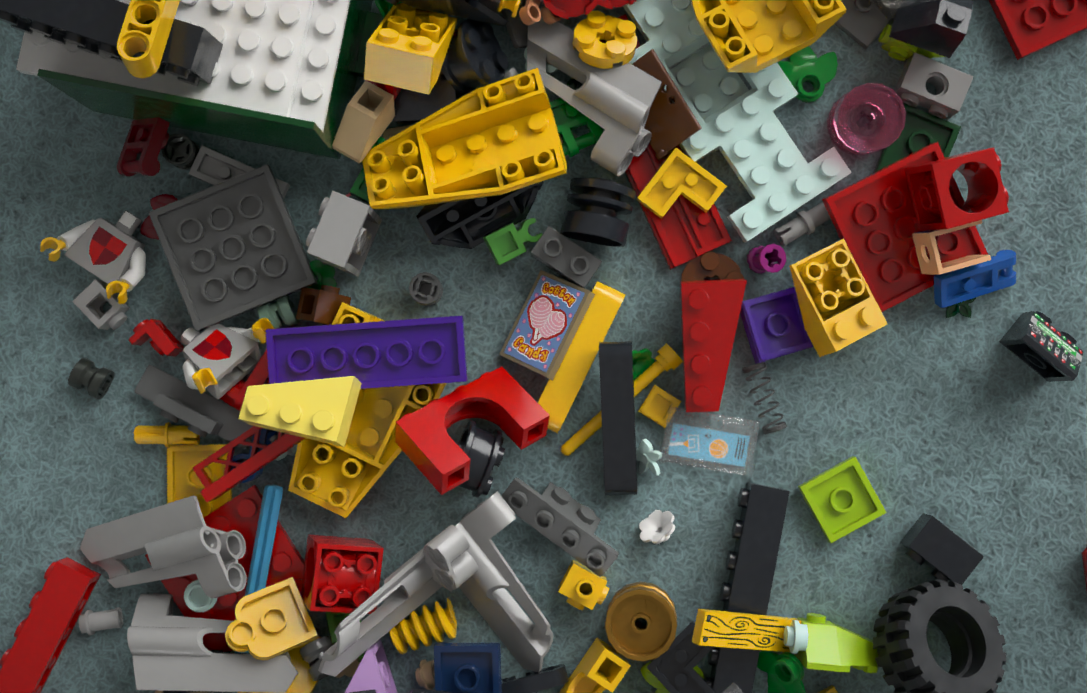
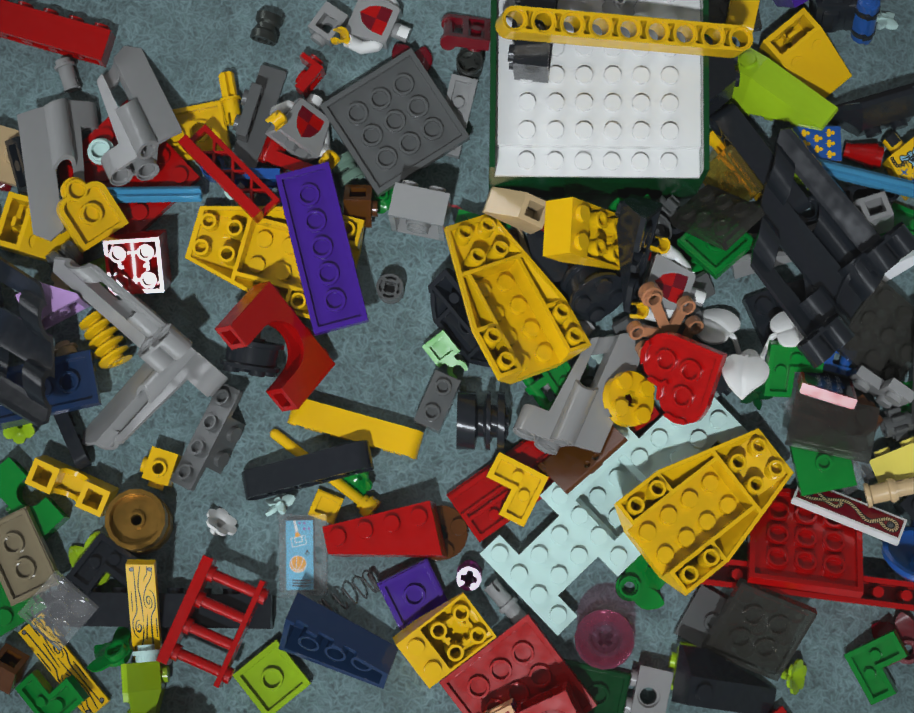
camera: 85 degrees right, 5 degrees down
(305, 409) = (267, 208): light yellow wedge -> none
(547, 324) = (377, 396): tile -> none
(772, 585) = (186, 624): none -> red fence
(818, 418) = (336, 642): none -> dark blue wedge

